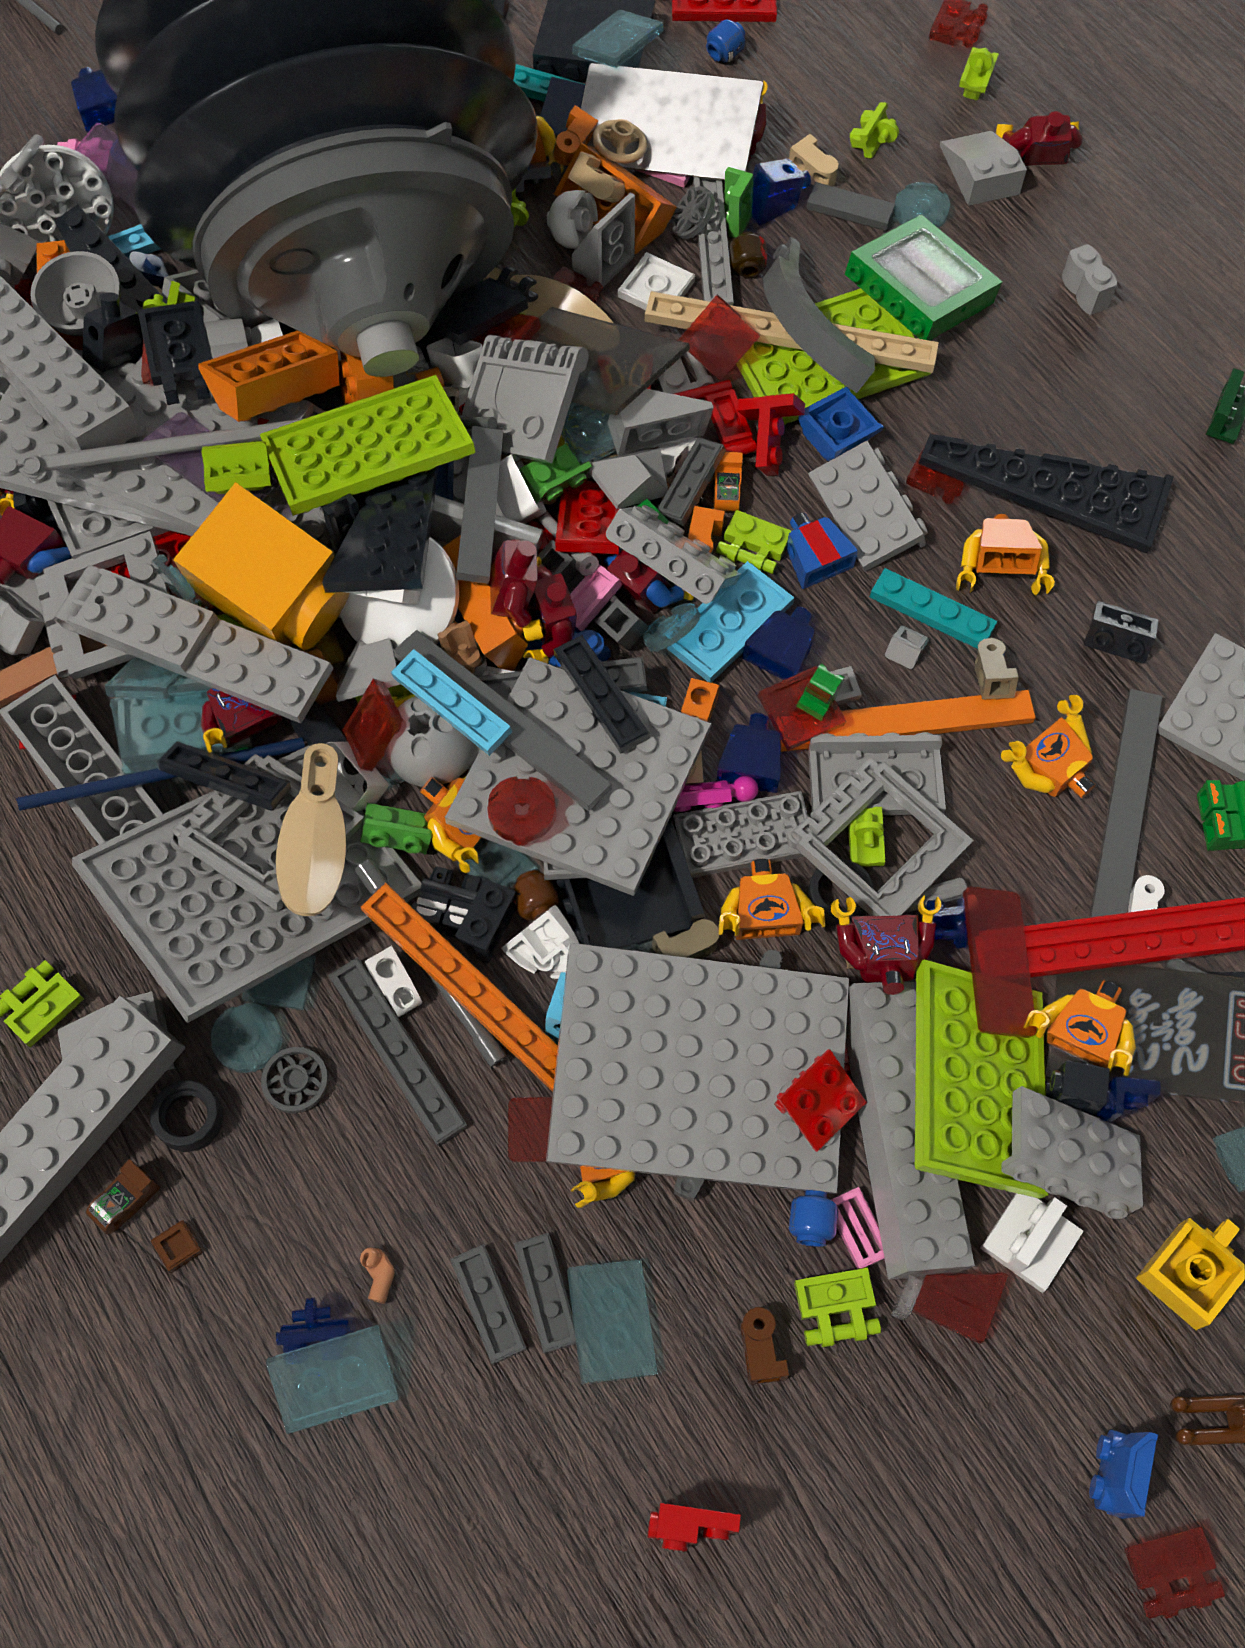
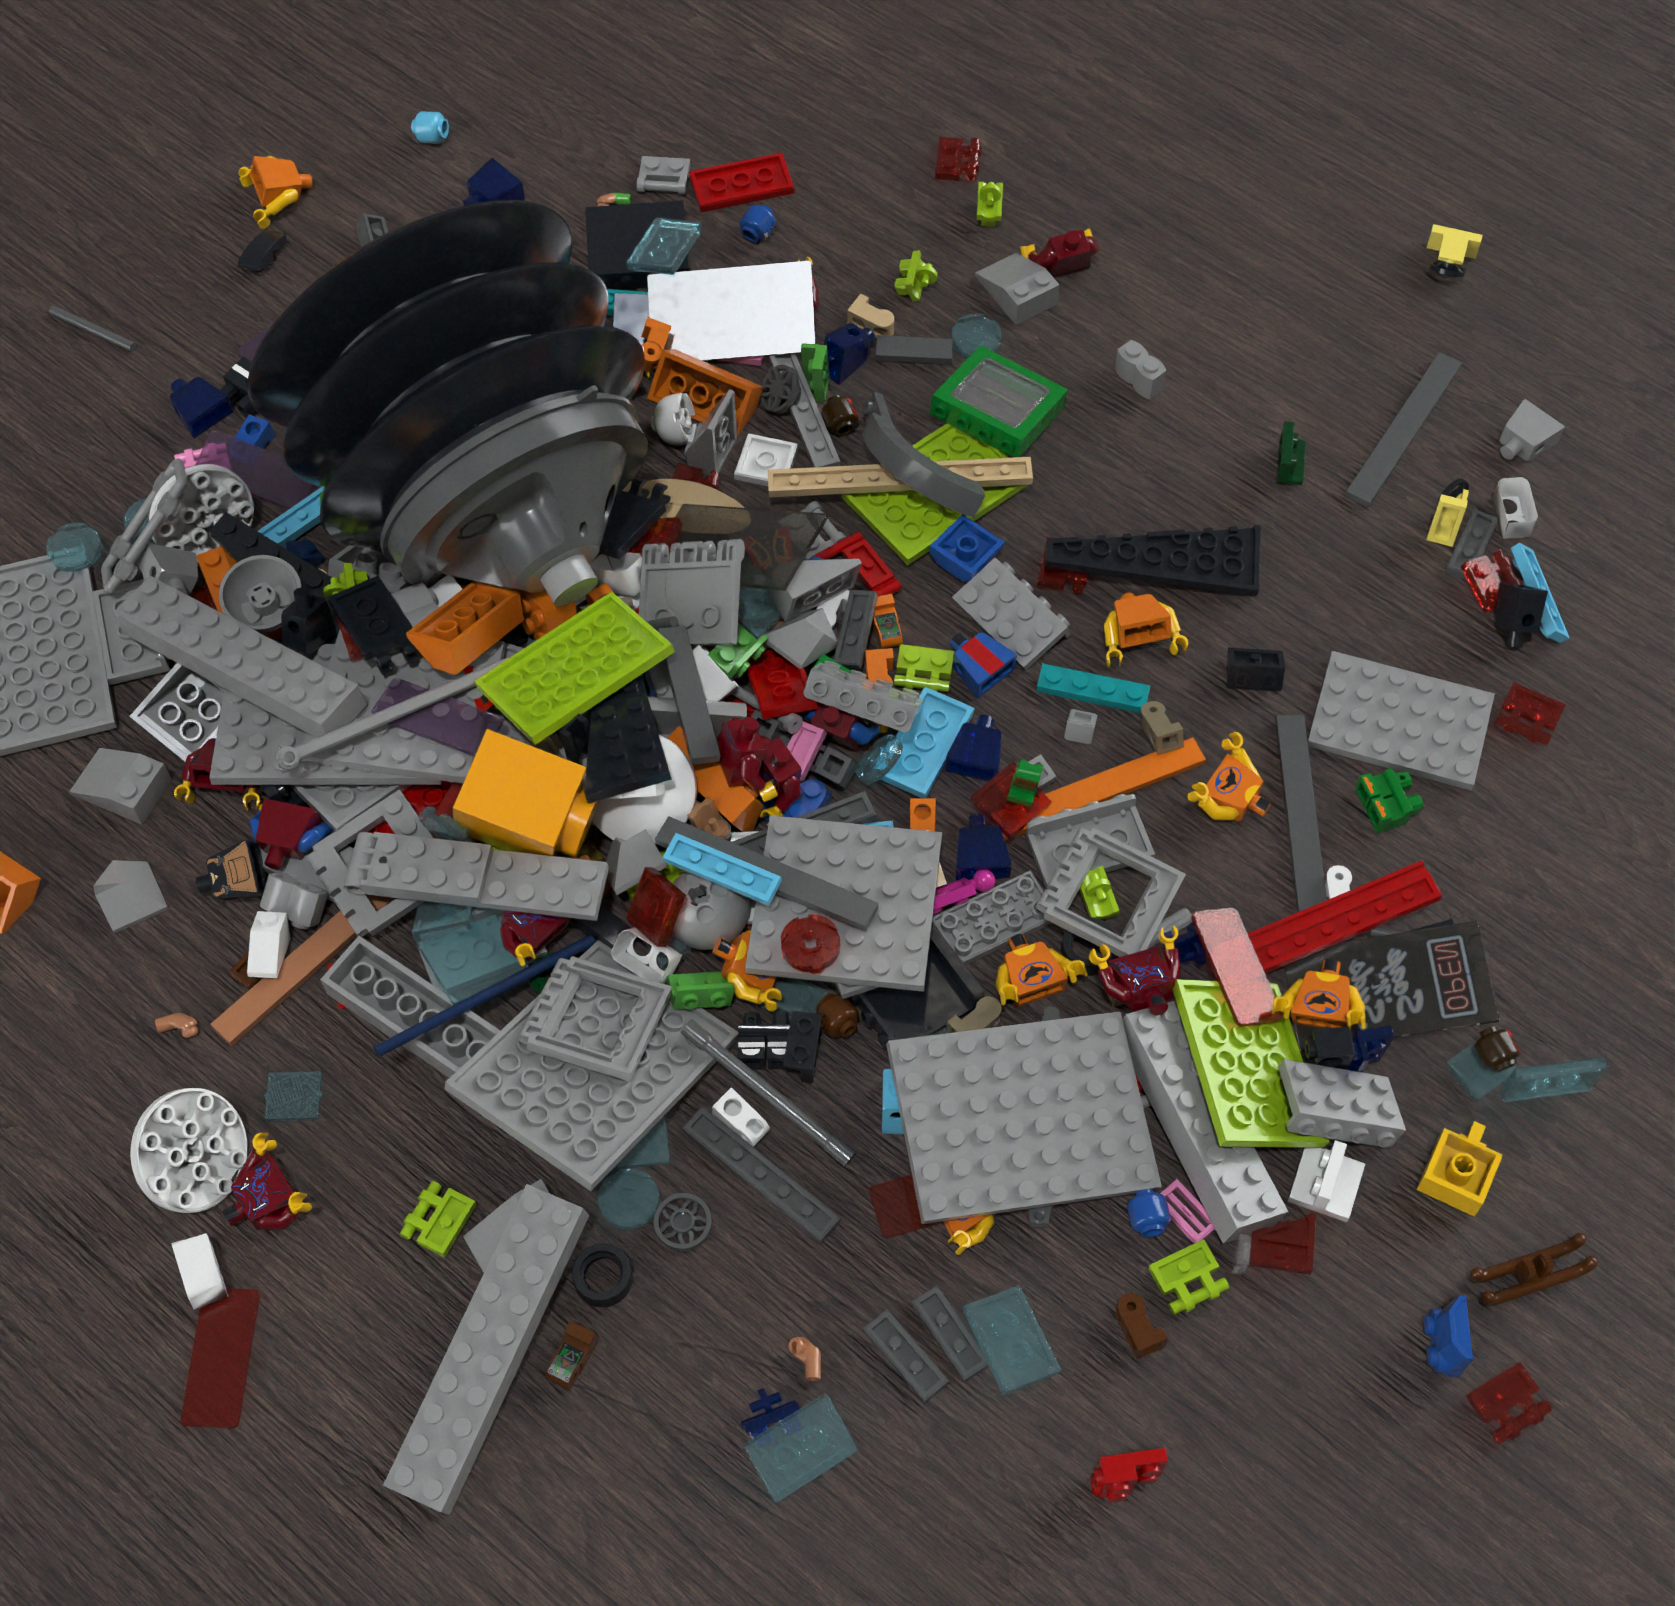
camera: 15 degrees left, 5 degrees down
(176, 1246) = (630, 1383): reddish brown tile -> none
(224, 775) = (543, 982): black tile -> none
(237, 463) = (467, 715): lime bracket -> none
(312, 838) = (638, 1012): tan plant -> none
(464, 982) = (806, 1103): orange tile -> none
(543, 944) = (858, 1053): white brick -> none
(589, 177) = (686, 381): tan leg -> none
(601, 694) = (843, 830): black tile -> none
(620, 133) = (694, 335): tan piece -> none
(719, 337) = (841, 497): clear red plate -> none
(769, 413) = (909, 564): red bracket -> none
(821, 1100) = (1128, 1113): red hinge -> none

